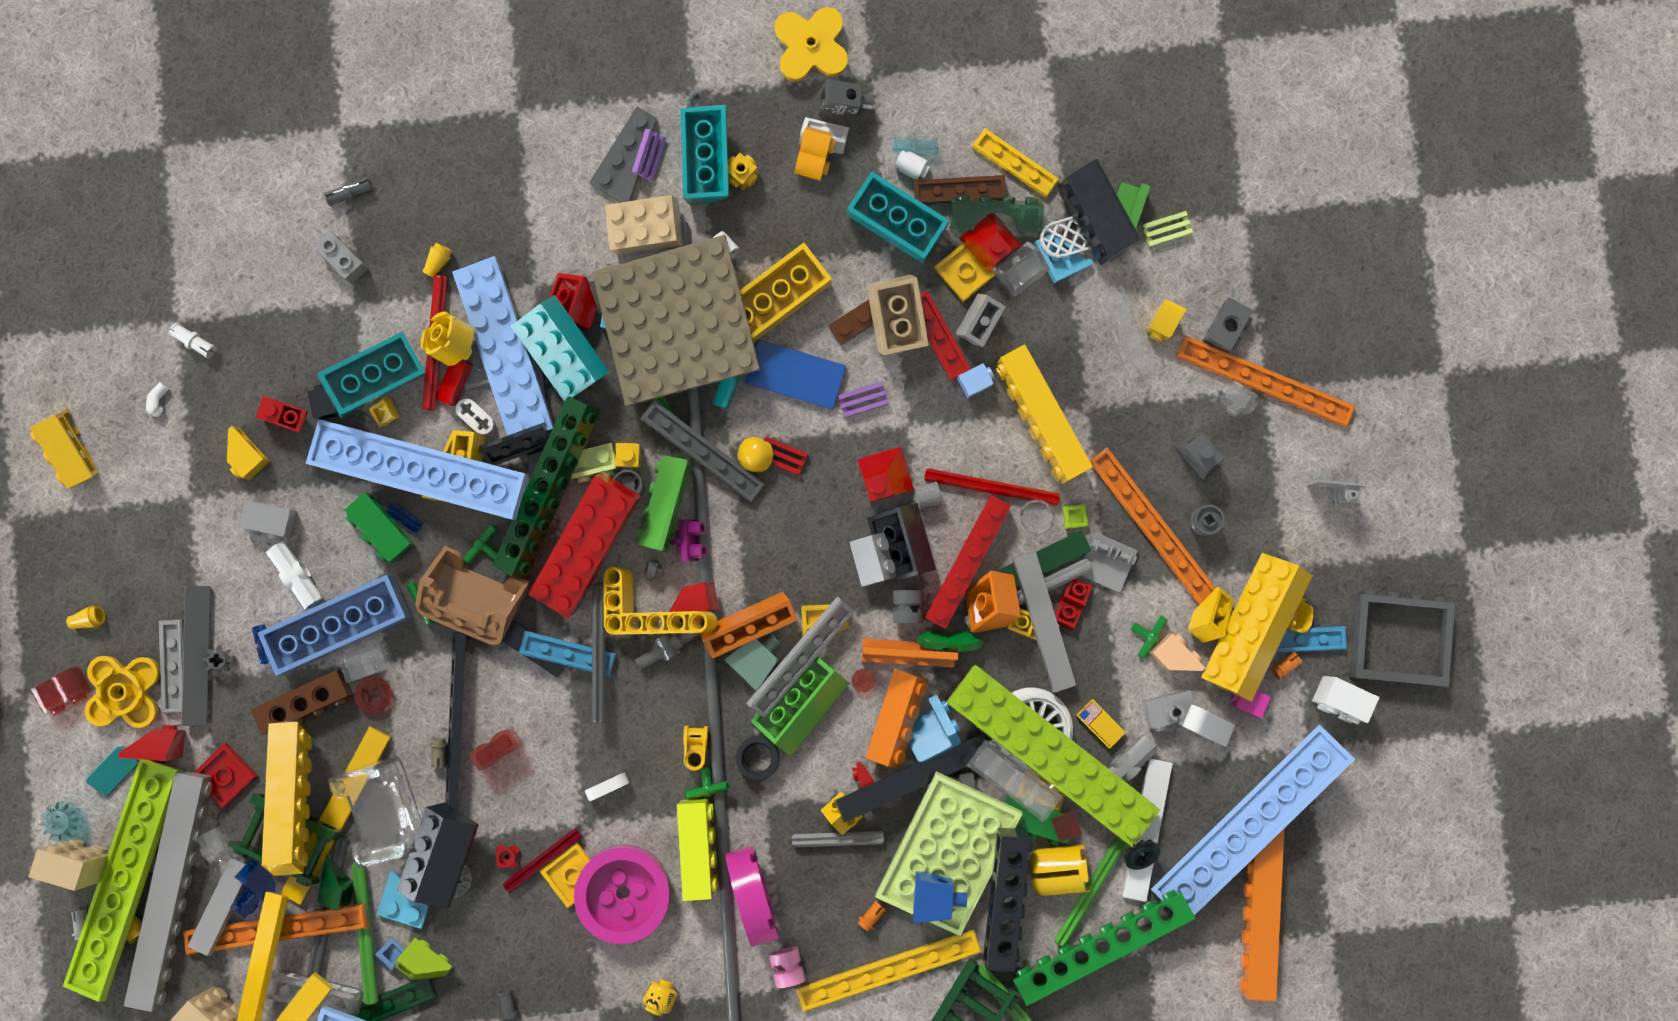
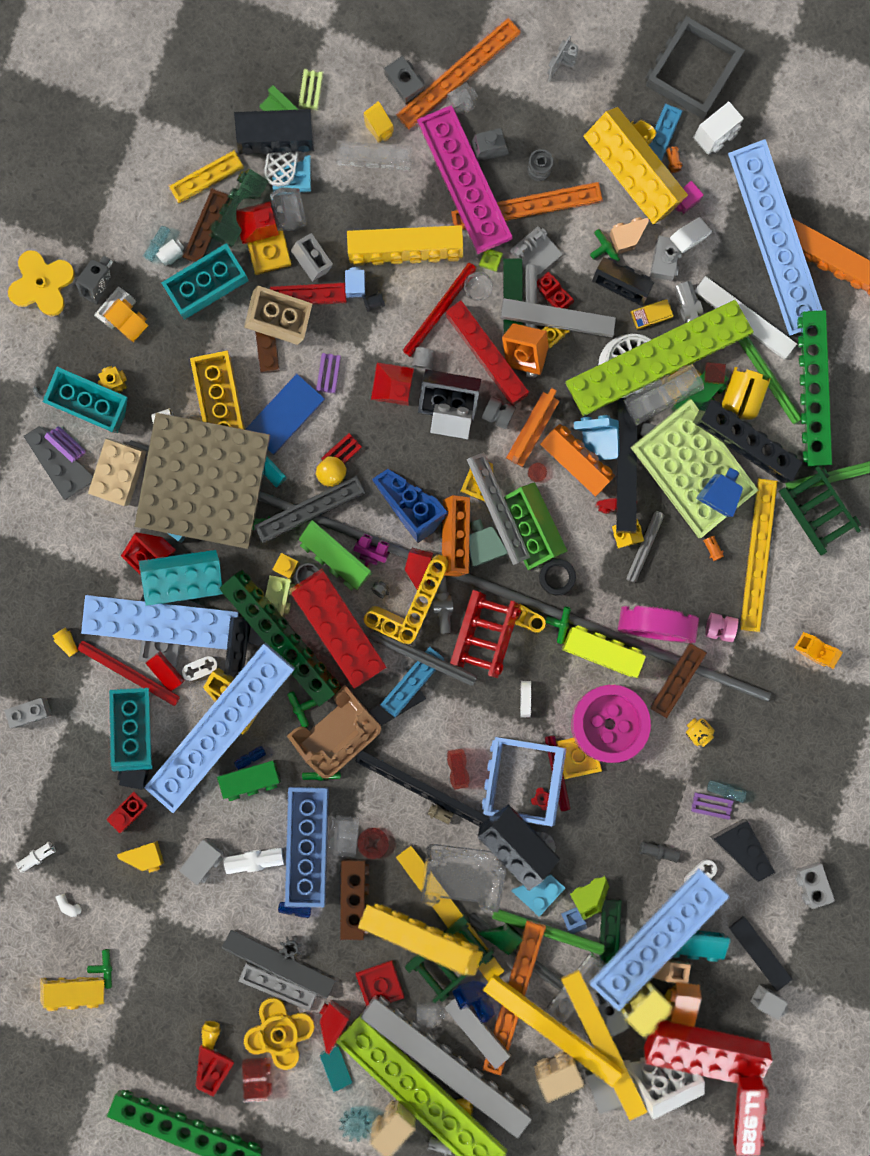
camera: 60 degrees left, 0 degrees up
(50, 638) = (211, 1070): none -> red wing
(108, 472) = (106, 968): none -> green piece
(384, 412) = (163, 735): yellow tile -> none
(448, 339) = (131, 658): yellow brick -> none
(496, 793) = (494, 765): none -> light blue window
(642, 690) = (471, 621): none -> red fence
(705, 946) = (678, 680): none -> reddish brown plate
(759, 563) = (414, 508): none -> blue wedge
(949, 641) = (540, 392): green tile -> none
(966, 410) = (373, 300): none -> black bush
(1121, 674) = (623, 281): none -> black slope
(1136, 861) = (763, 321): black gear -> none
(1149, 445) = (464, 179): none -> dark pink plate
(1212, 616) = (612, 195): yellow slope -> none

